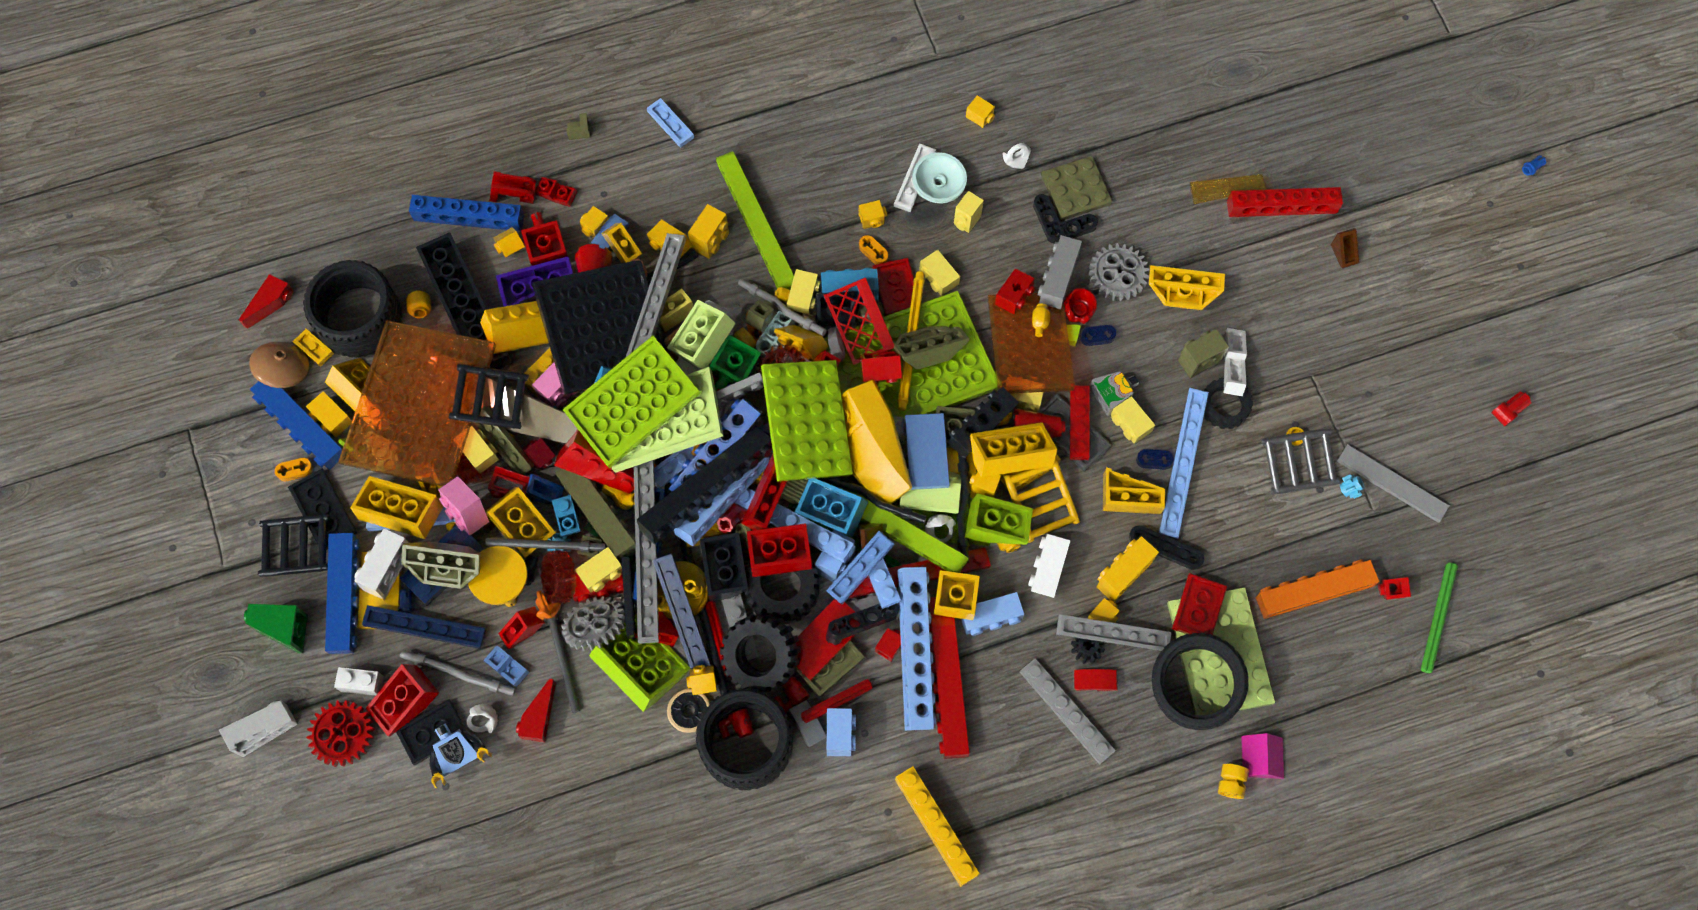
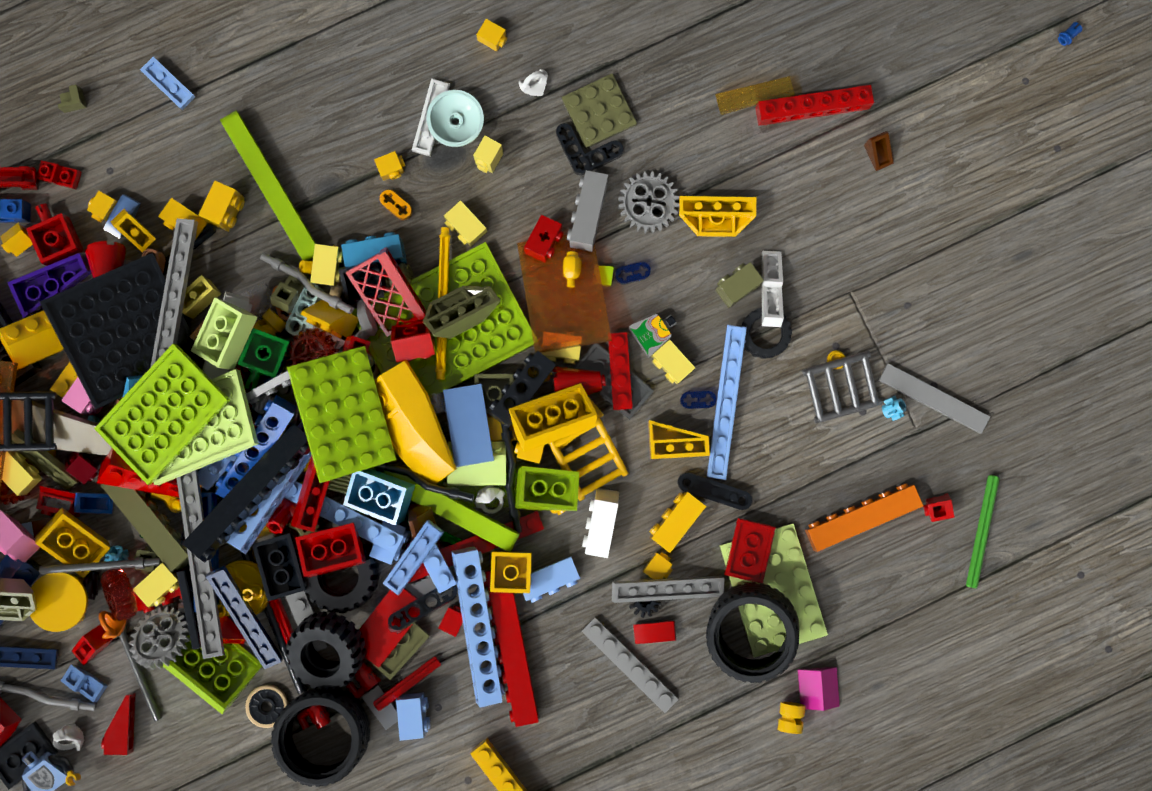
camera: 10 degrees left, 15 degrees up
(566, 515) = (119, 529): dark azure slope -> none
(702, 680) = (274, 678): yellow brick -> none
(895, 285) = (421, 241): red tile -> none
(1080, 305) = (612, 244): red hair -> none
(1509, 410) = (1047, 310): red piece -> none

